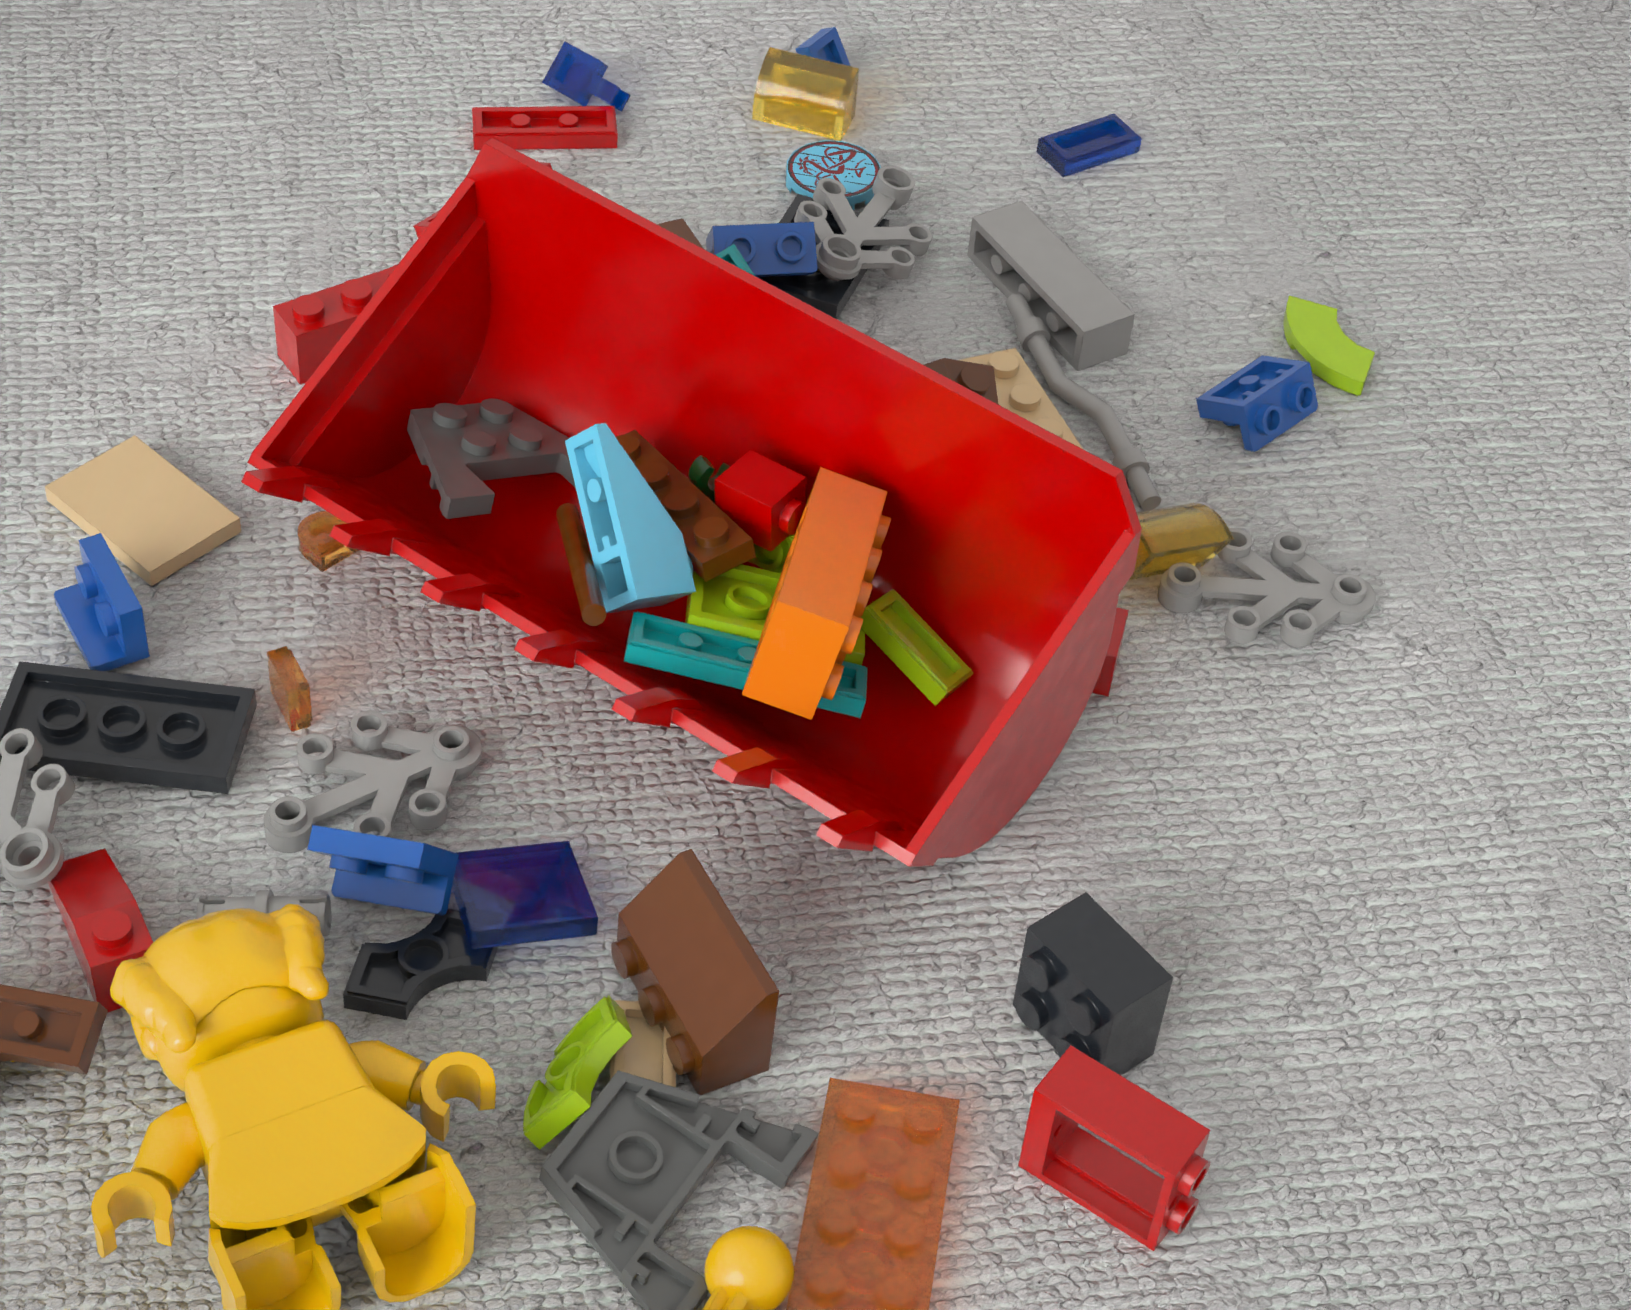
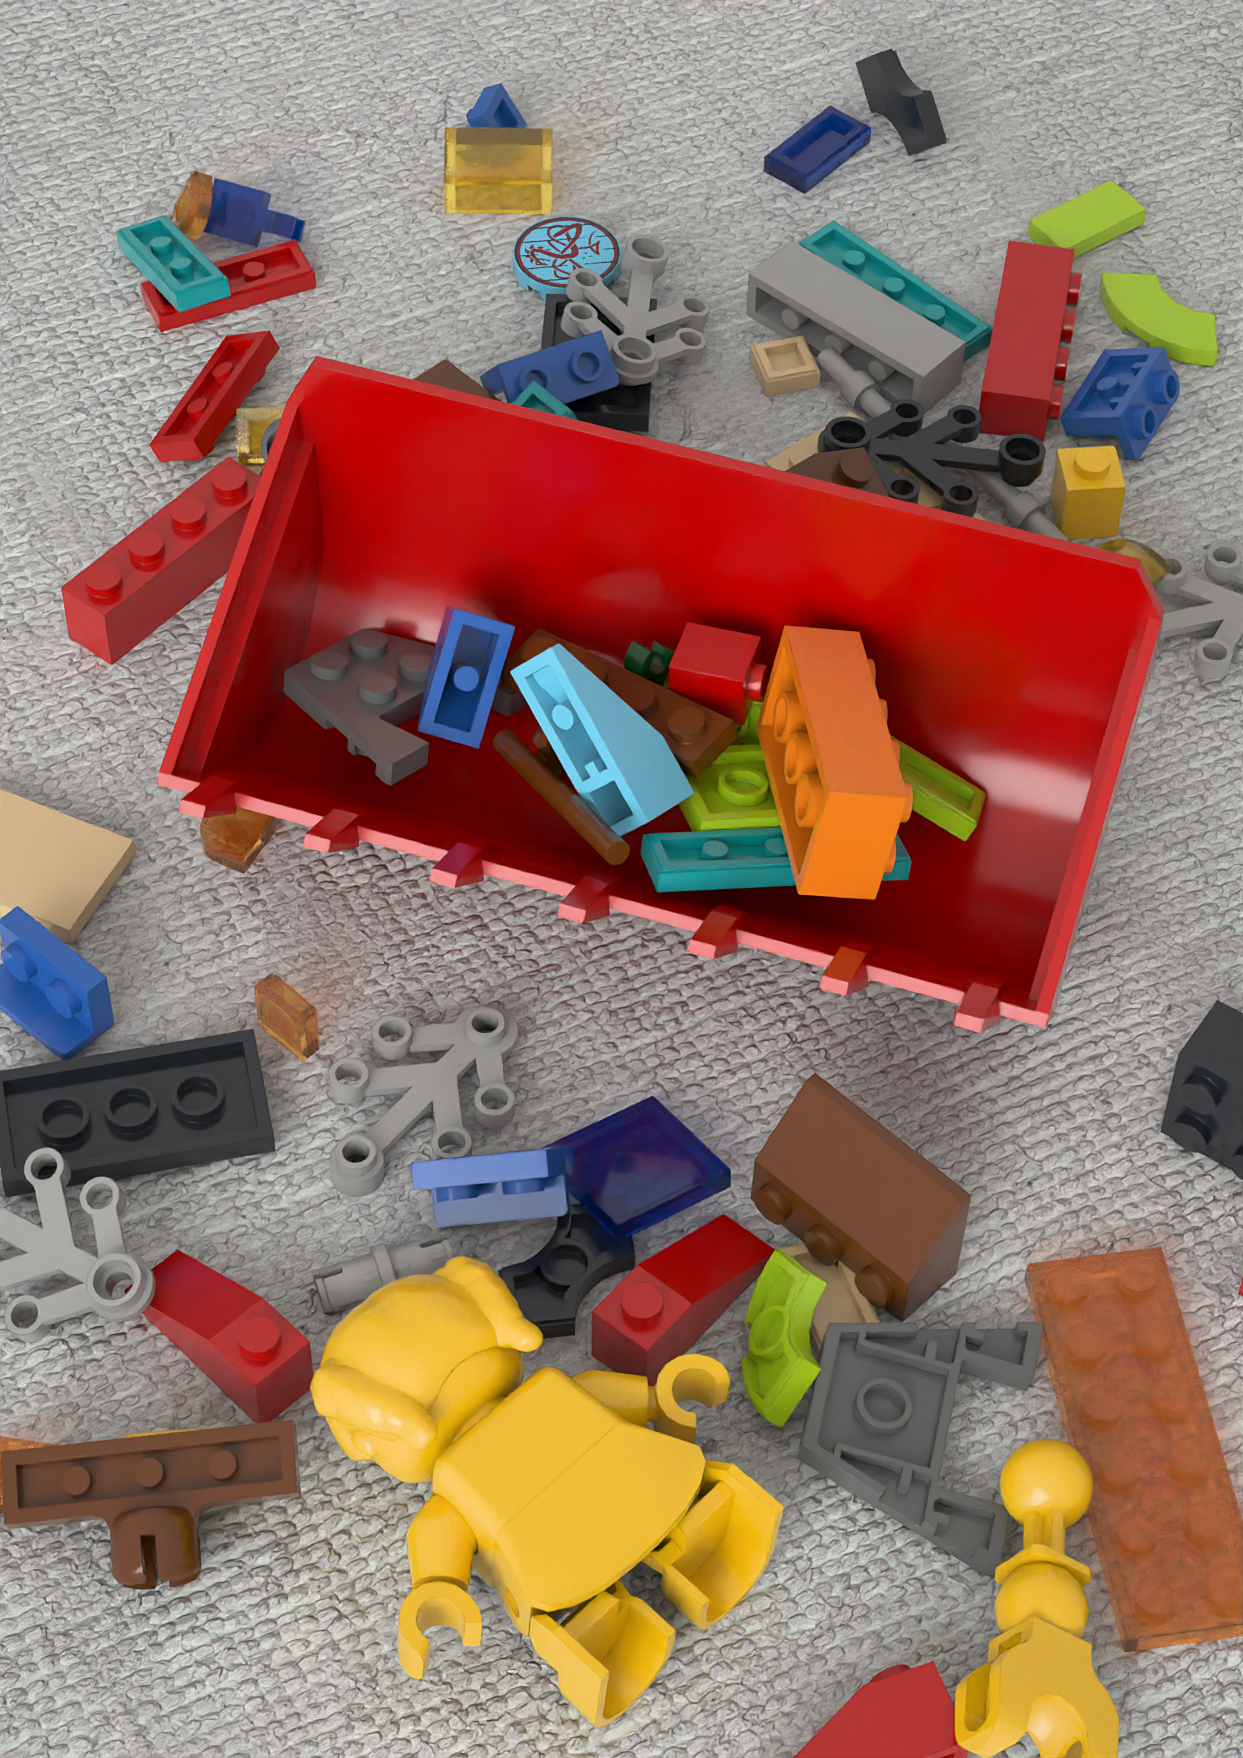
camera: 15 degrees left, 5 degrees up
(502, 1007) = (675, 1297): none -> red slope
(503, 97) = (173, 263): none -> teal tile
(541, 462) = (463, 676): none -> blue slope
(542, 60) = (193, 205): none -> clear orange tile
(978, 301) = (784, 366): none -> tan tile
(1059, 388) = (924, 455): none -> black plant
(1101, 257) = (875, 269): none -> teal tile
(1173, 122) = (901, 101): none -> black tile
(1190, 461) = (1087, 492): none -> yellow brick
(1195, 332) = (1027, 339): none -> red brick
(1296, 255) = (1088, 219): none -> lime tile

